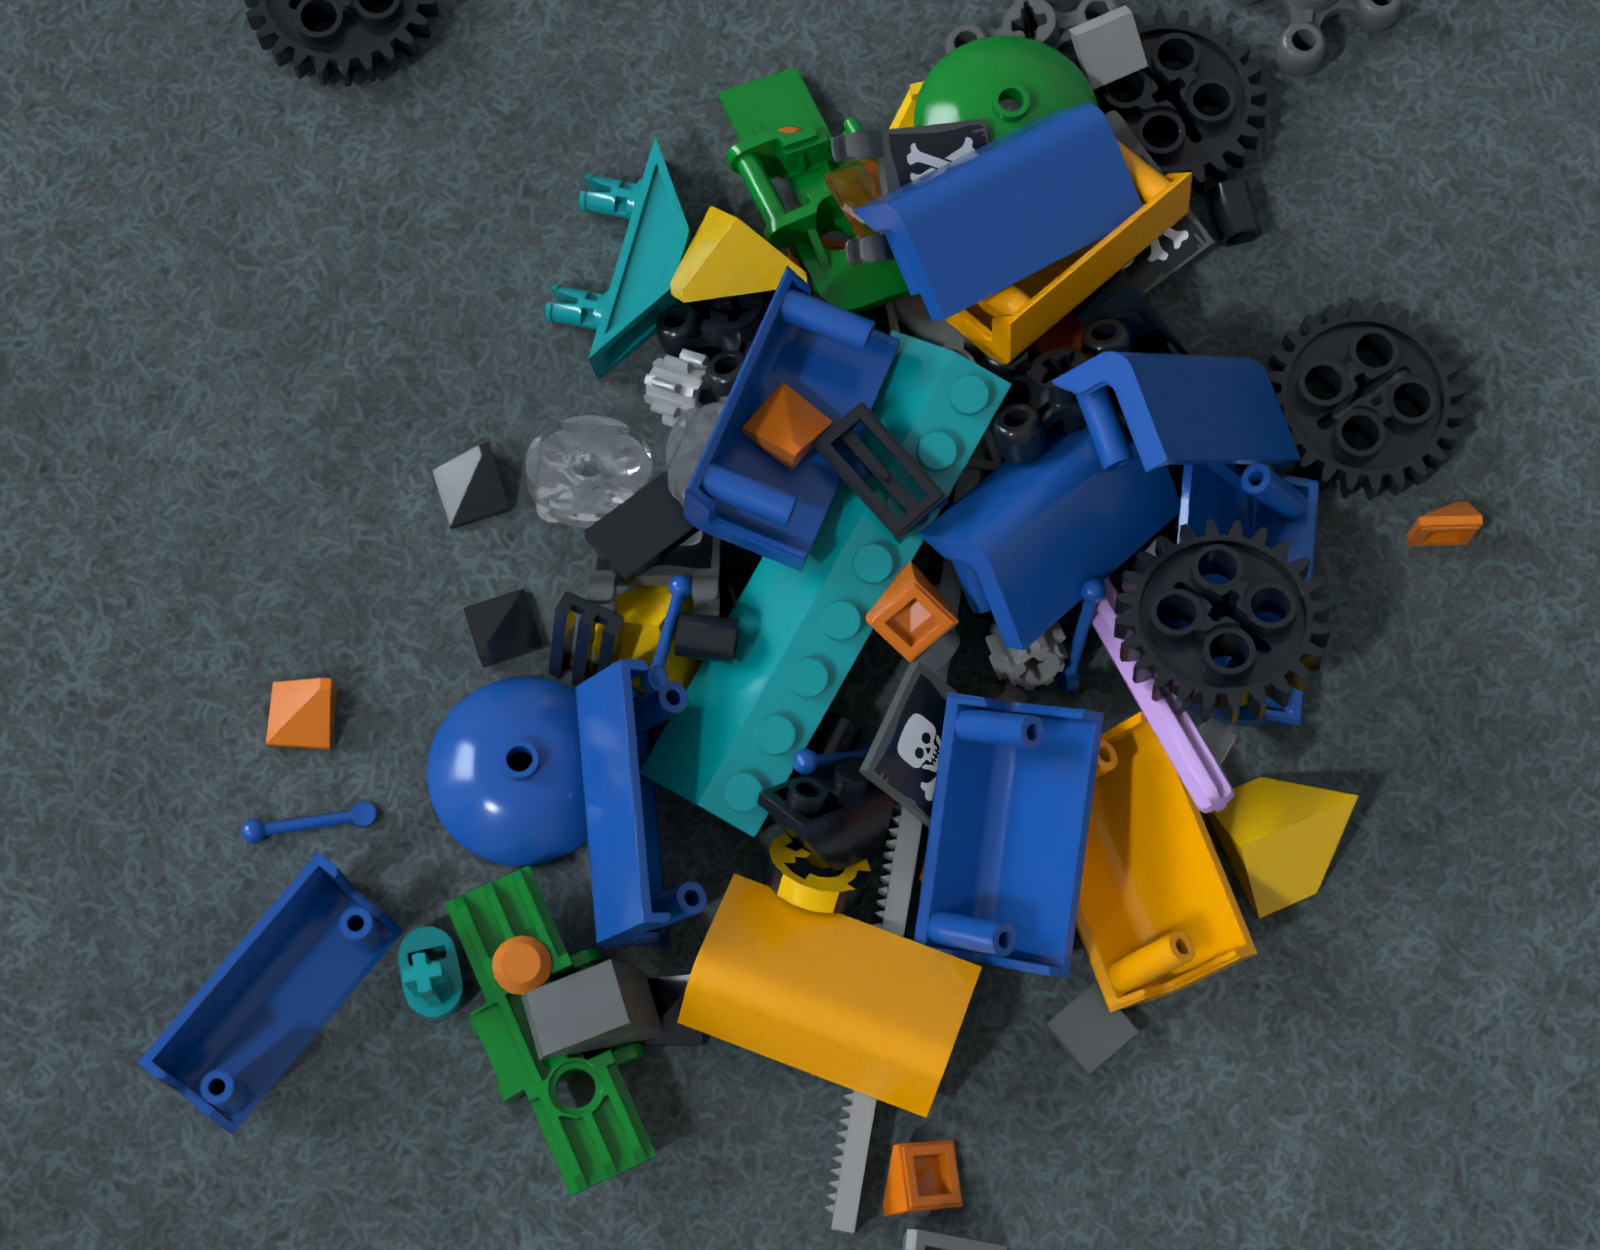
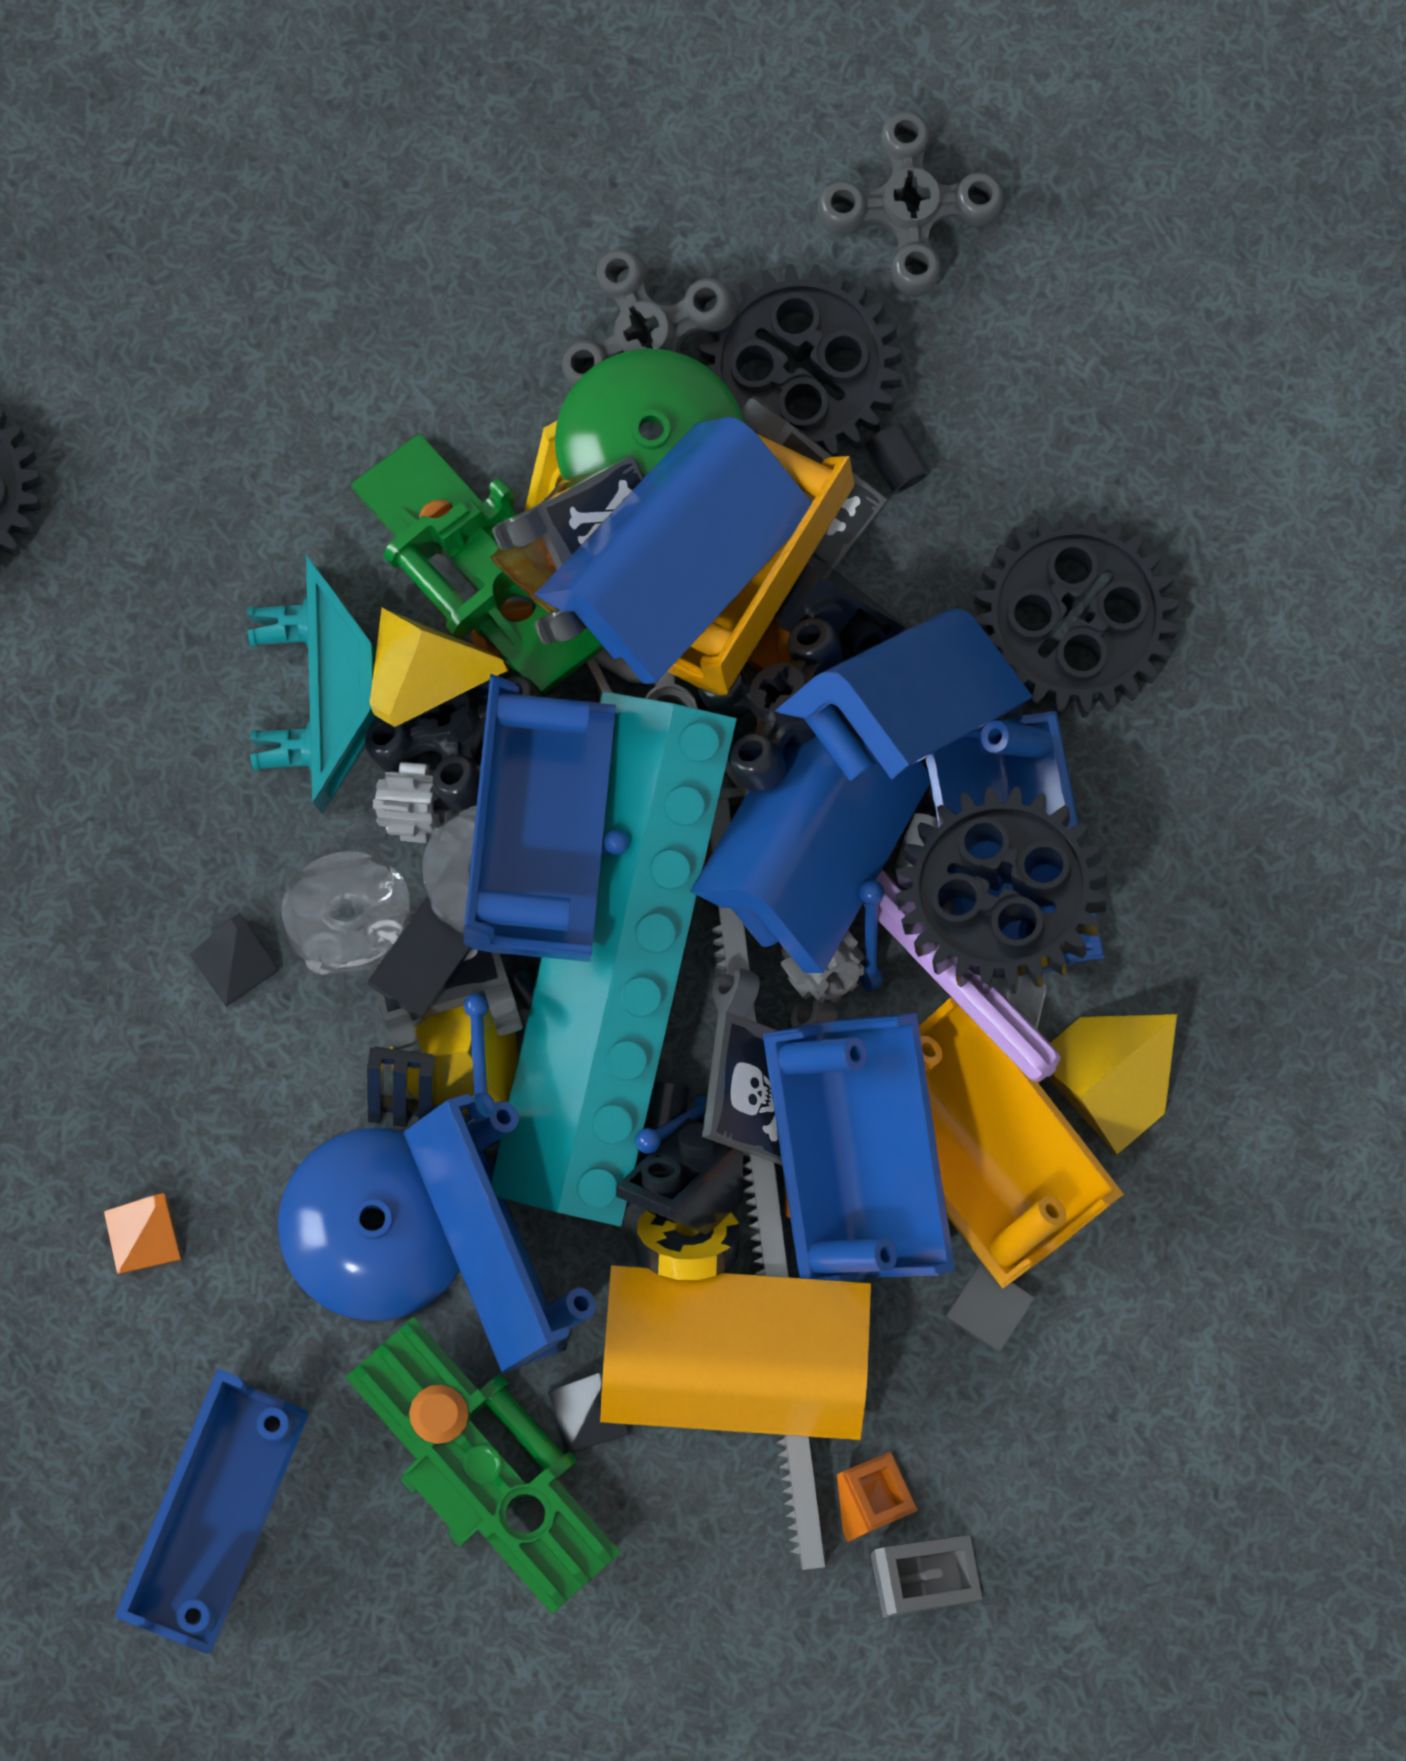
camera: 20 degrees left, 5 degrees up
(362, 815) = (233, 1313): blue hinge -> none
(436, 986) = (356, 1458): teal piece -> none
(503, 628) = (309, 1090): black slope -> none
(592, 1010) = (518, 1437): dark grey slope -> none
(706, 637) = (517, 1049): black hinge -> none
(786, 426) = (534, 824): orange slope -> none
(911, 613) = (706, 969): orange slope -> none
(916, 513) = (684, 874): black tile -> none
(1108, 47) = (727, 334): light grey tile -> none
(1446, 526) = (1193, 714): orange slope -> none

